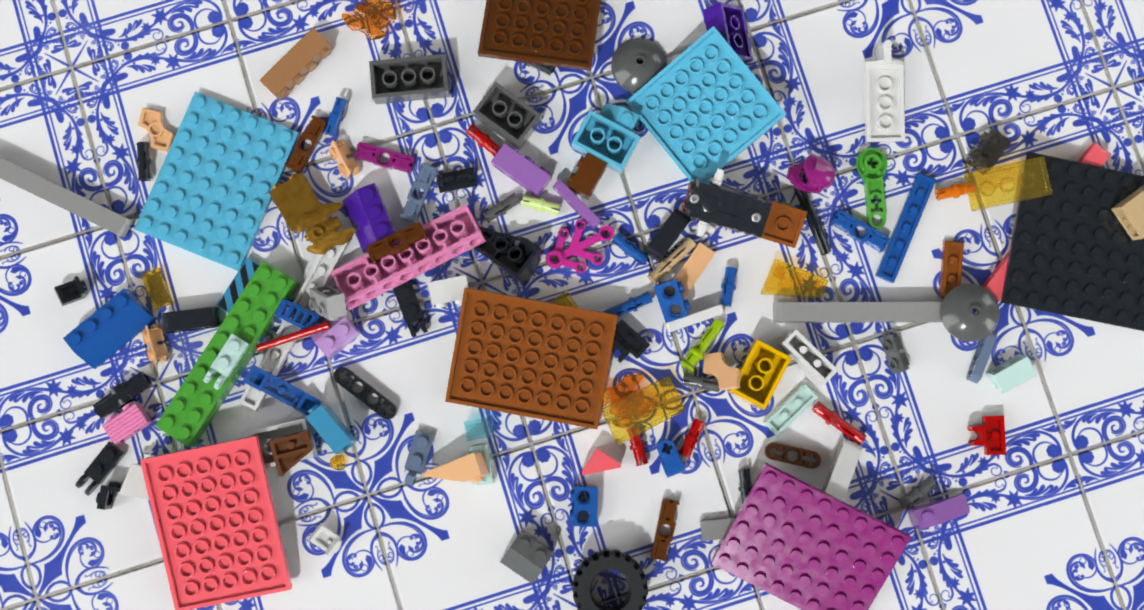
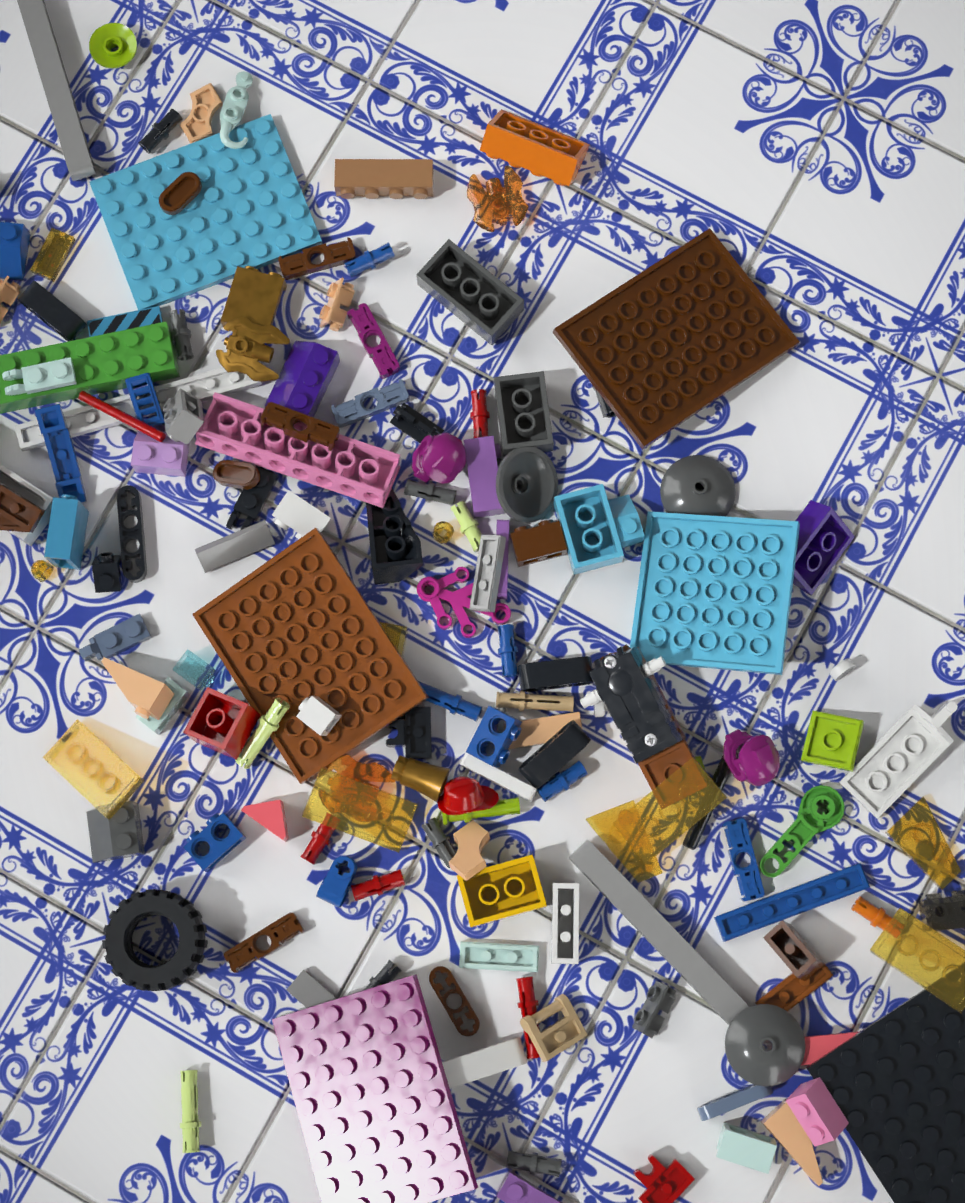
camera: 50 degrees right, 5 degrees down
(57, 139) = (112, 36): none -> lime dish
(172, 108) = (234, 108): none -> light aqua piece
(193, 184) = (180, 193): none -> reddish brown tile
(276, 260) = (181, 335): none -> dark grey pin
(375, 427) = (107, 573): none -> black bracket
(388, 303) = (236, 474): none -> reddish brown tile
(428, 342) = (234, 546): none -> light grey tile
(481, 536) = (93, 769): none -> clear yellow tile
(491, 181) = (439, 458): none -> magenta helmet
(523, 441) = (221, 723): none -> red brick
(534, 218) = (438, 529): none -> clear yellow hinge
(548, 415) = (267, 725): none -> yellowish green pin
(549, 151) = (526, 484): none -> dark grey dish
(571, 384) = (318, 715): none -> white brick
(578, 218) = (487, 573): none -> light grey tile
(656, 359) = (421, 776): none -> pearl gold plant
(690, 346) = (465, 796): none -> red piece
(711, 276) = (554, 754): none -> black beam
(801, 244) = (669, 810): none -> clear yellow tile
(808, 82) = (842, 669): none -> white tile
(842, 124) = (832, 741): none -> lime tile
(863, 416) = (558, 1035): none -> tan plate
(934, 250) = (793, 950): none -> reddish brown brick
(937, 129) = (925, 844): none -> clear yellow wing
(1027, 342) = (792, 1137): none -> light nougat slope
(1030, 318) = (817, 1112): none -> bright pink brick

